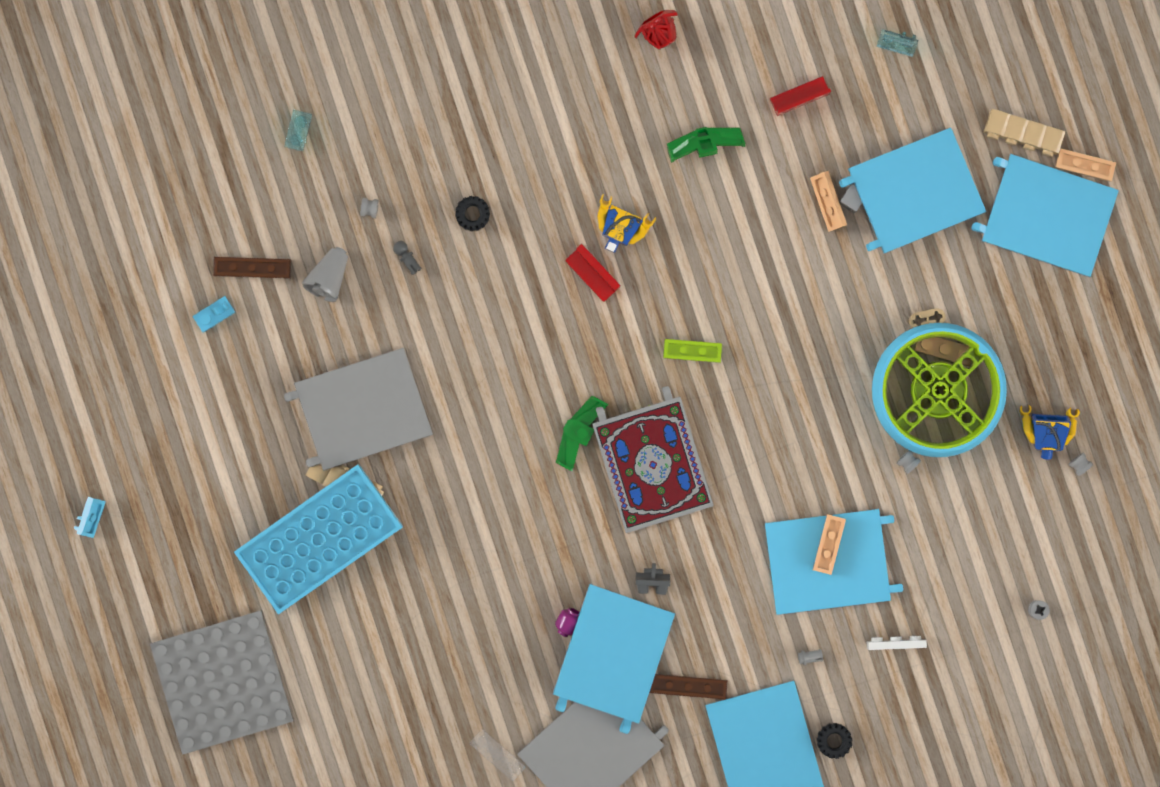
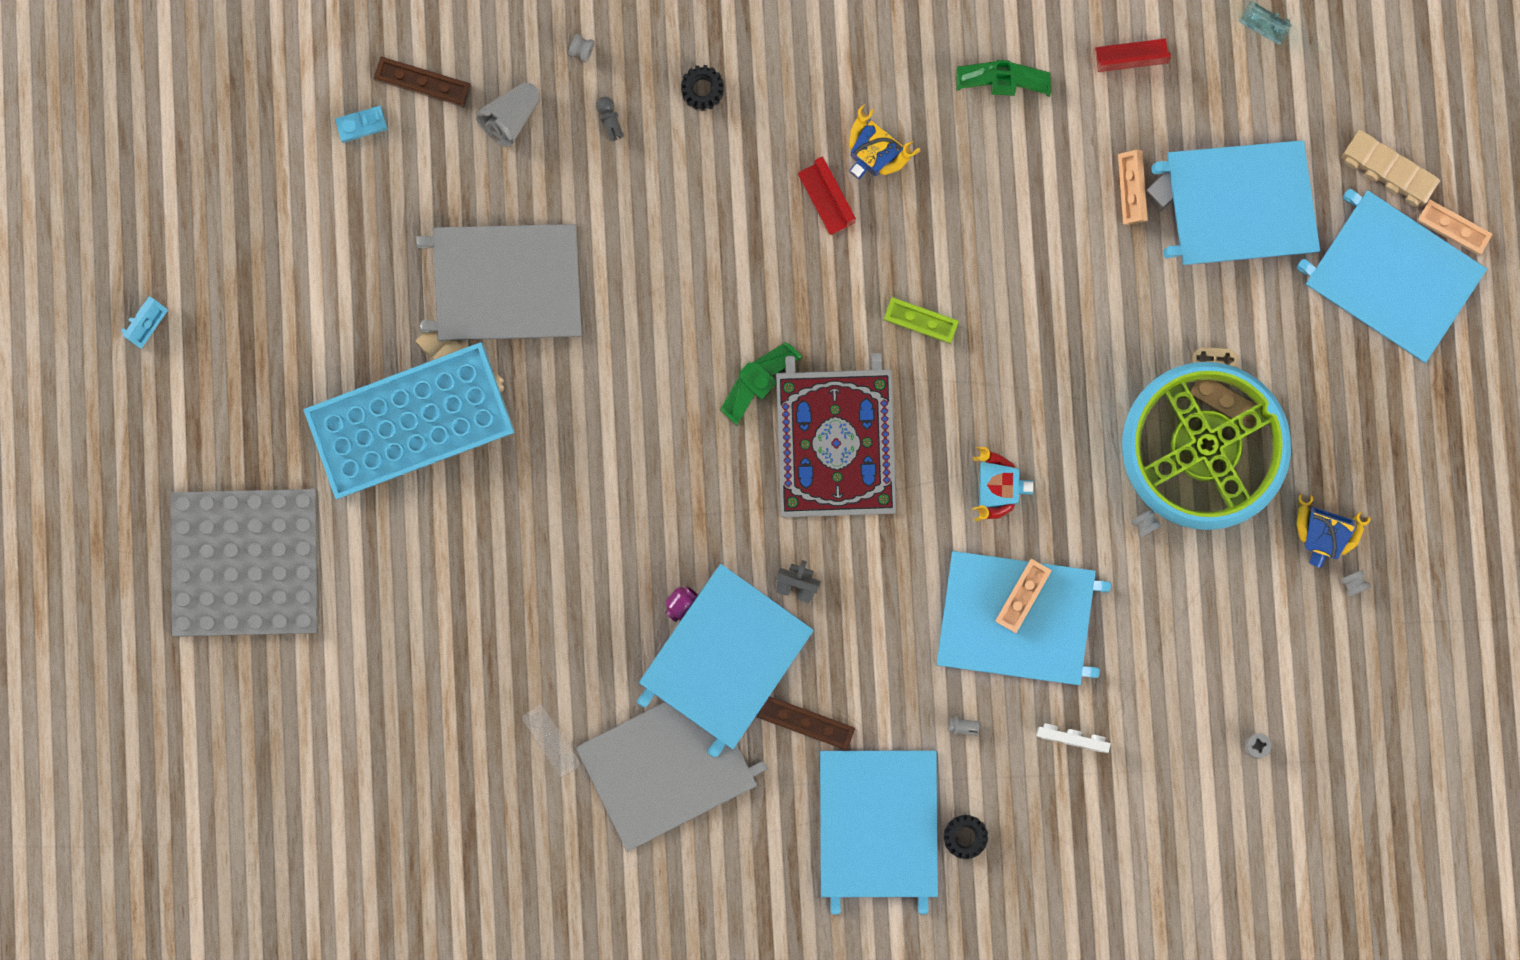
camera: 20 degrees right, 5 degrees down
(787, 464) = (998, 485): none -> torso

